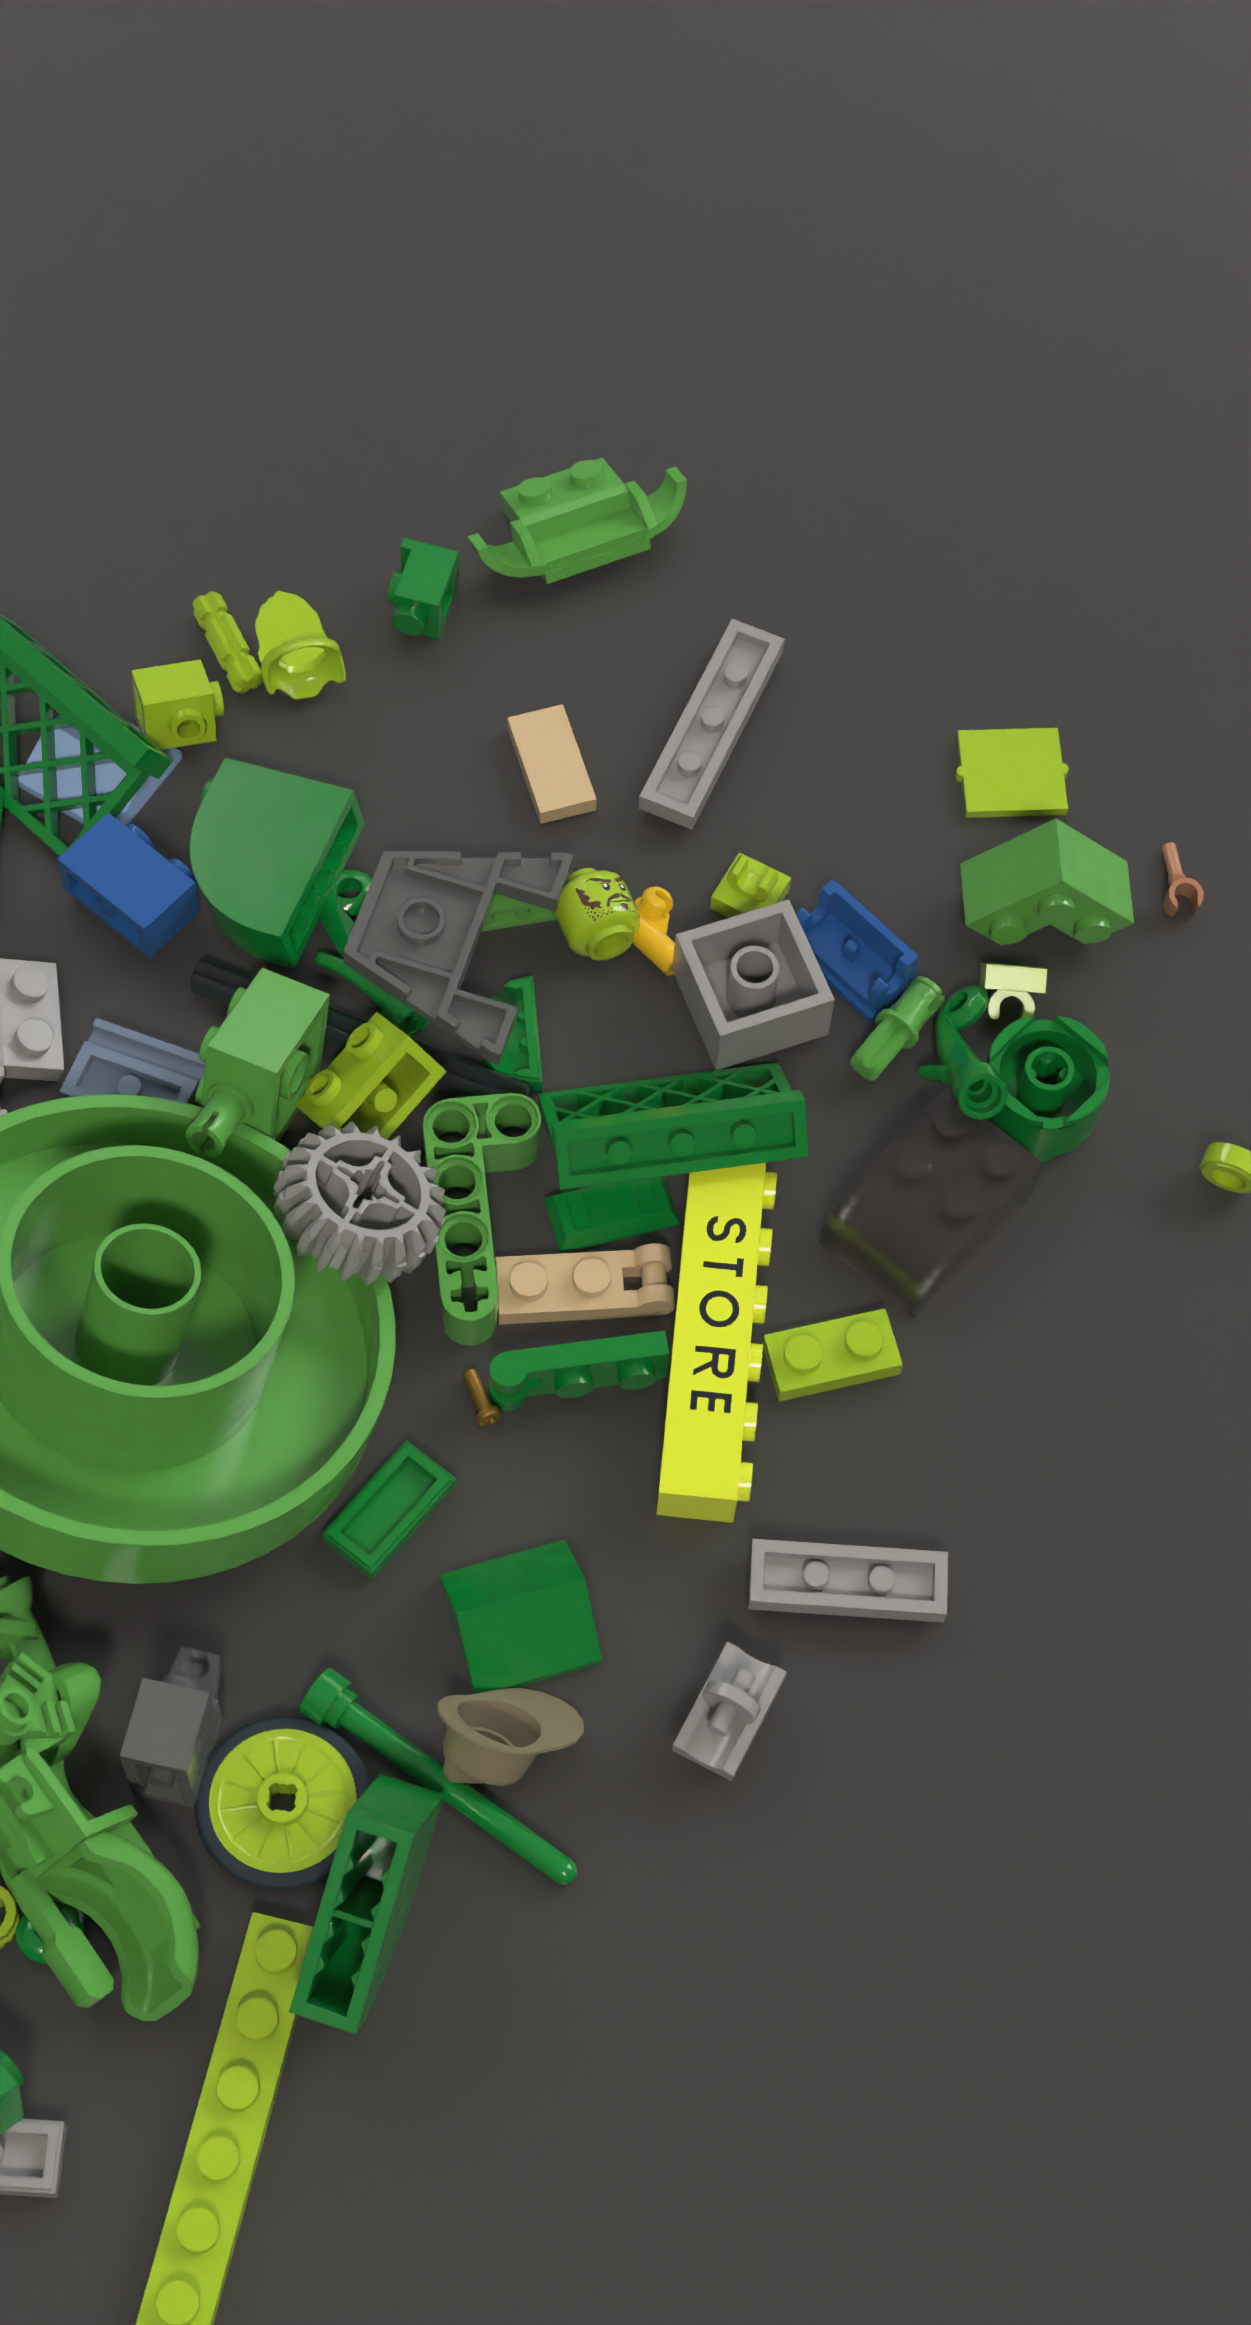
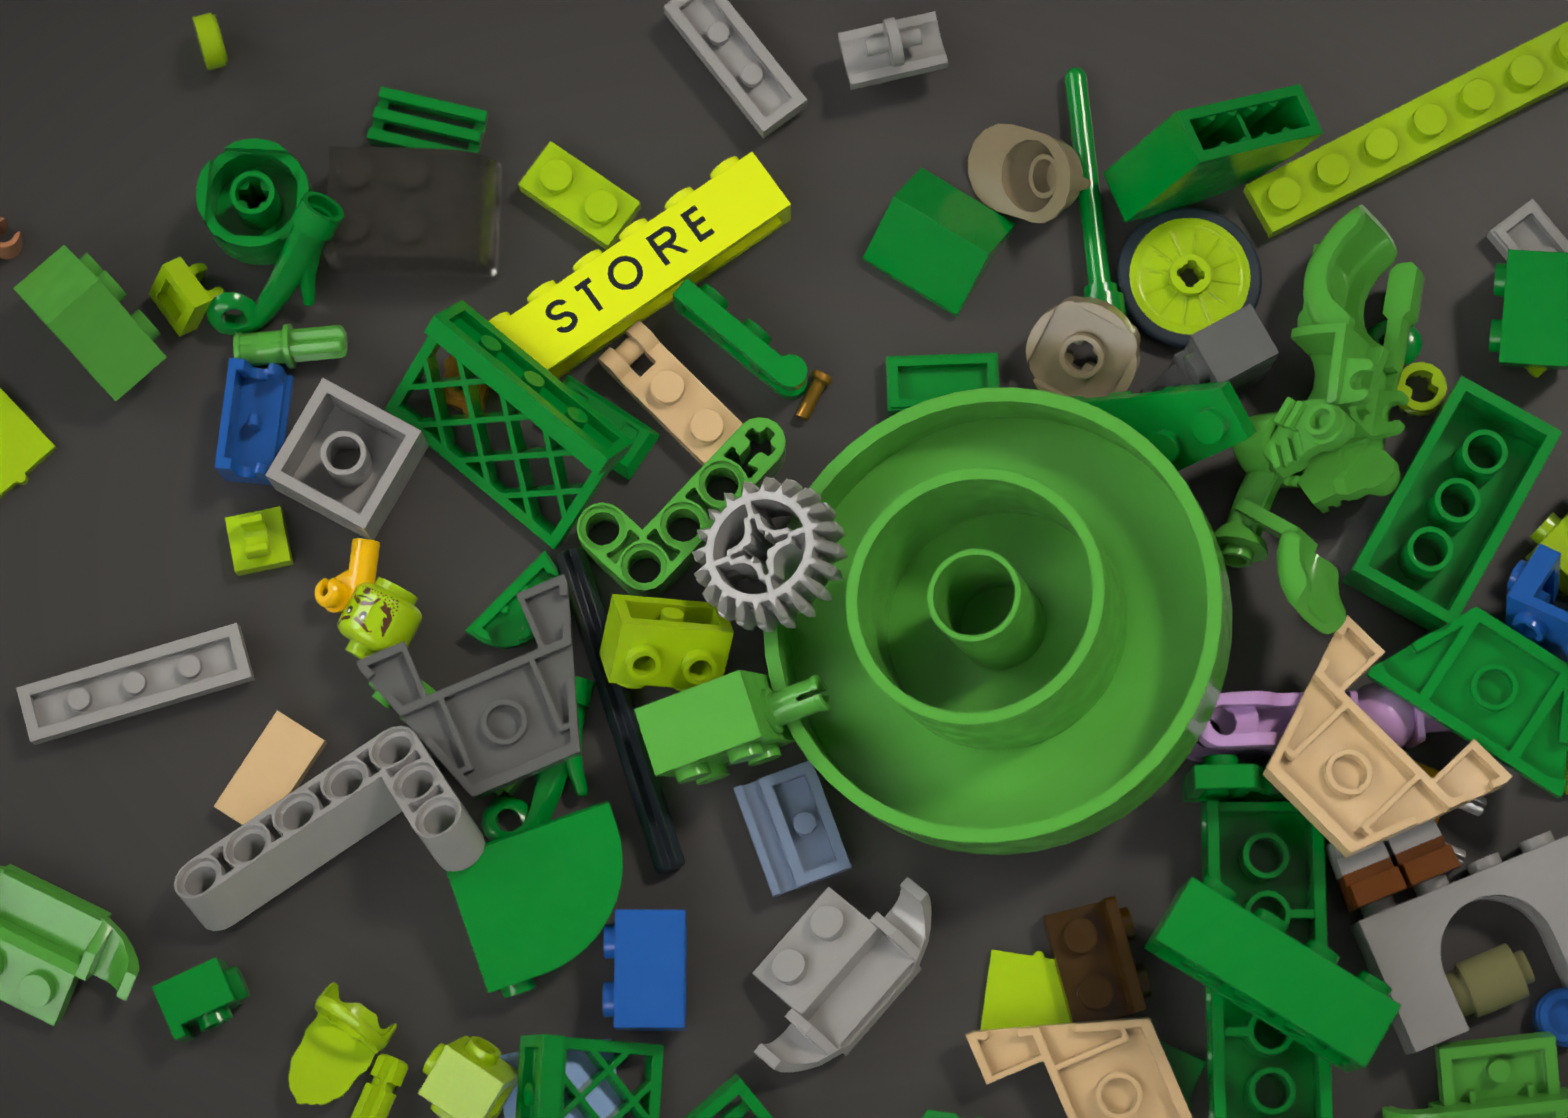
camera: 125 degrees left, 15 degrees up
(155, 1620) = (1182, 420): none -> green wing
(283, 1660) = (1077, 321): none -> dark tan plate
(475, 761) = (324, 819): none -> light grey beam
(1043, 1255) = (392, 97): none -> green tile

